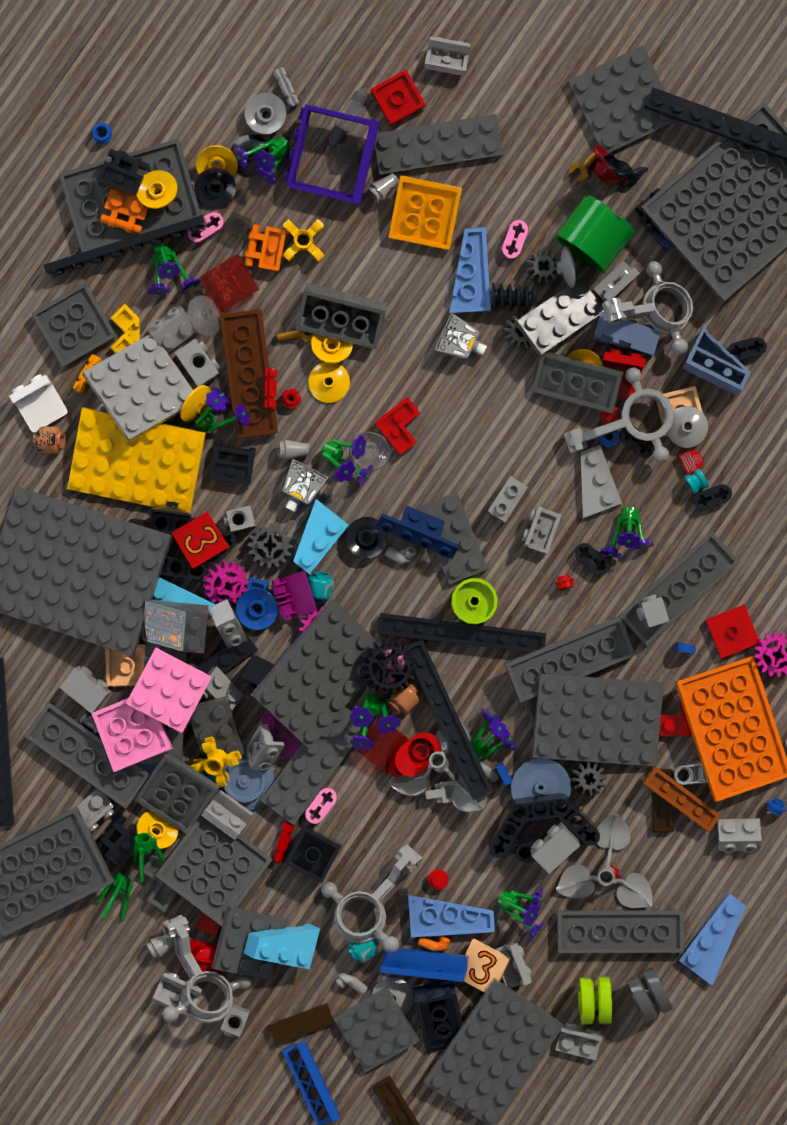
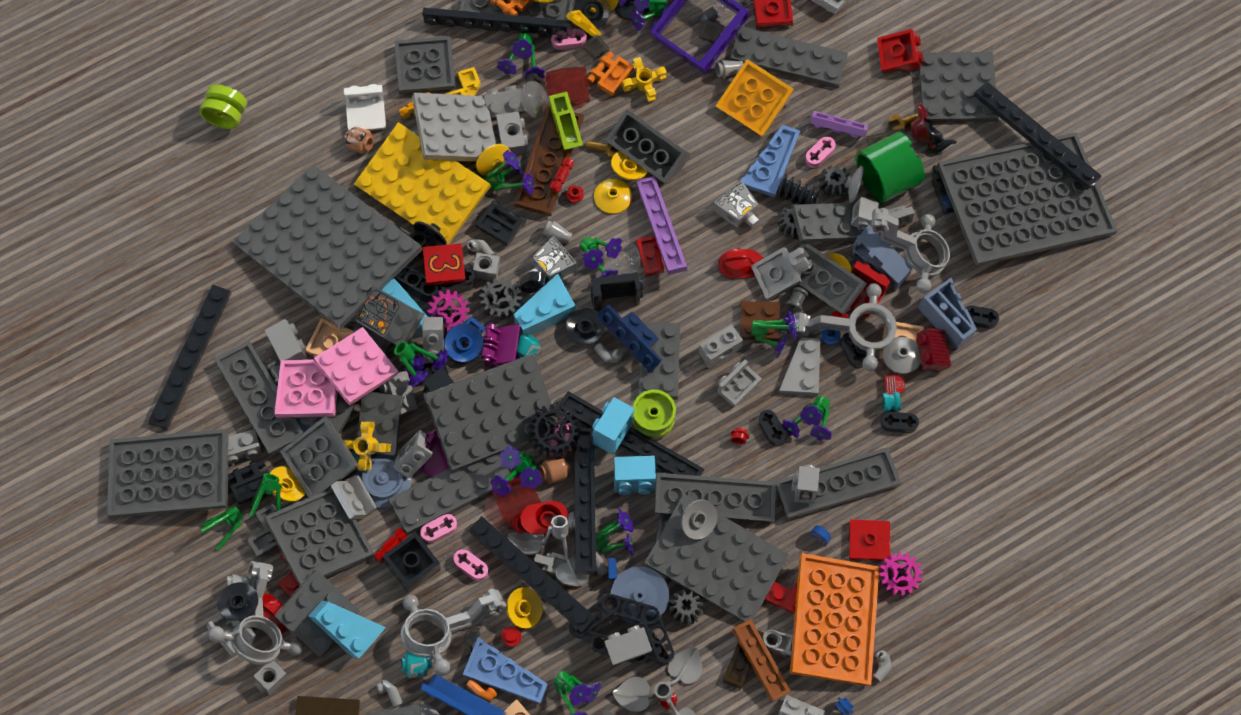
camera: 15 degrees right, 20 degrees down
(161, 968) = (235, 594): none -> black dish
(211, 206) = (581, 21): none -> yellow tile
(220, 657) = (414, 363): none -> plant
(223, 498) = (479, 246): none -> light grey arm
(246, 327) = (565, 120): none -> lime slope
(294, 517) = (532, 282): none -> black beam
(369, 822) = (474, 561): none -> bright pink beam
(377, 485) = (614, 287): none -> black panel
(393, 398) = (661, 225): none -> medium lavender plate
(432, 815) = (532, 575): none -> black plate
(443, 636) = (613, 425): none -> medium azure brick
(445, 848) = (530, 604): none -> yellow dish
(484, 672) = (634, 474): none -> medium azure brick
(487, 398) = (738, 263): none -> red piece
(521, 200) = (839, 124): none -> medium lavender plate
(532, 393) = (781, 271): none -> light grey plate
(532, 451) = (758, 311): none -> reddish brown plate
(539, 466) = (761, 328): none -> green plant
(549, 89) = (900, 51): none -> red plate
(559, 413) = (796, 300): none -> dark grey bush
(568, 697) = (705, 521): none -> light grey dish
(590, 295) = (863, 213): none -> light grey brick
(716, 409) = (933, 350): none -> dark red brick

